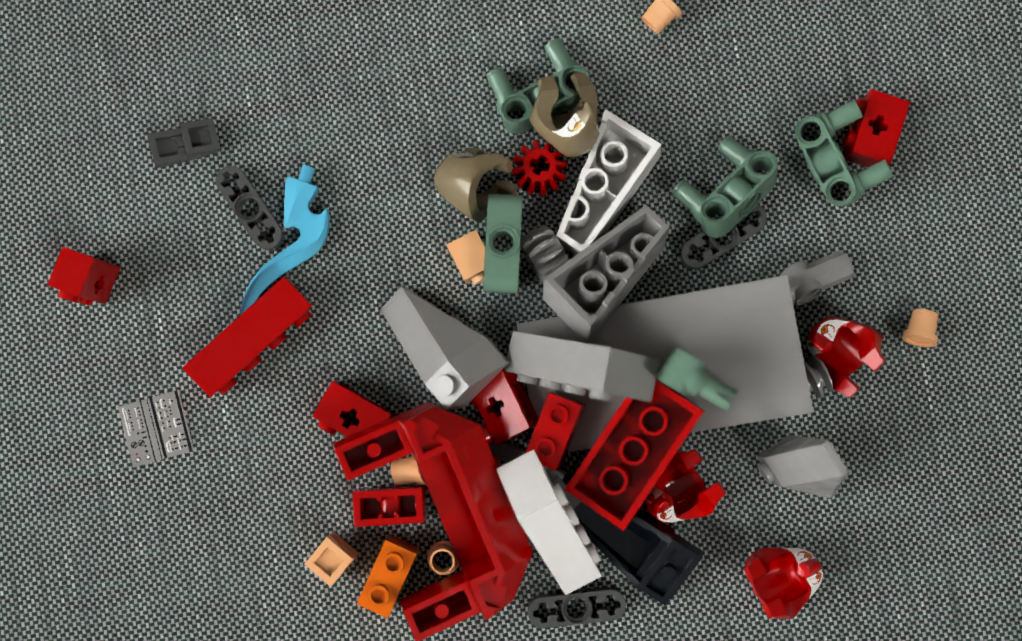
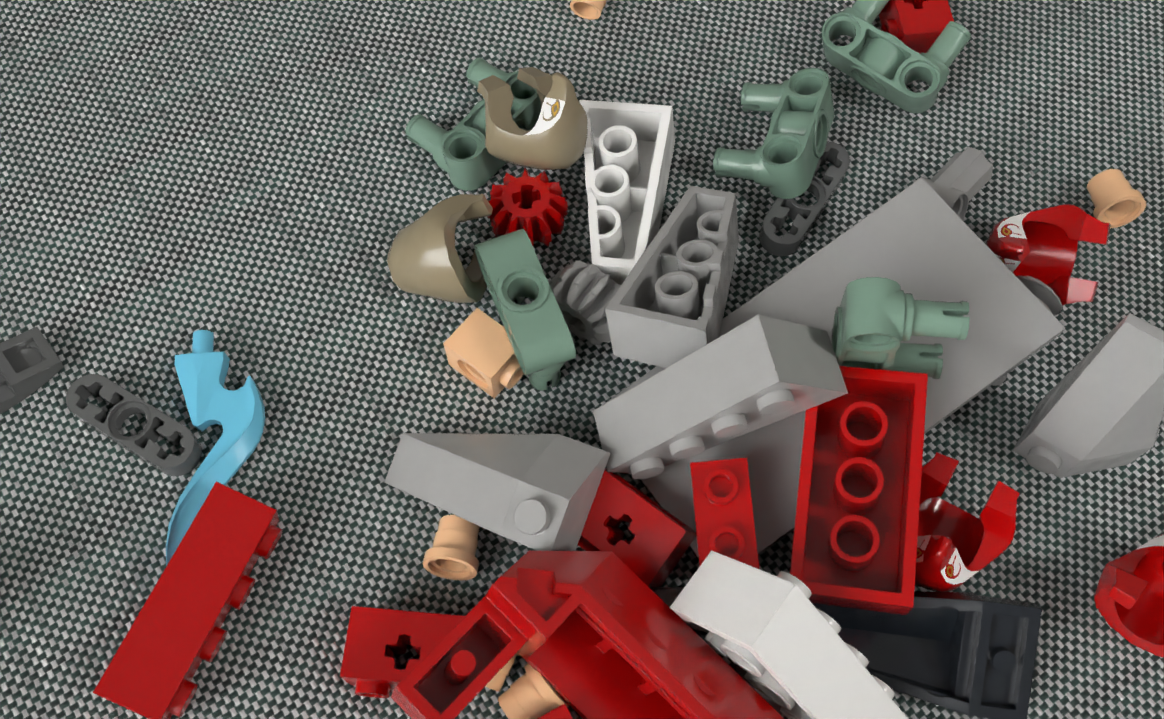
camera: 30 degrees left, 20 degrees down
(400, 370) = (453, 550): none -> light nougat piece

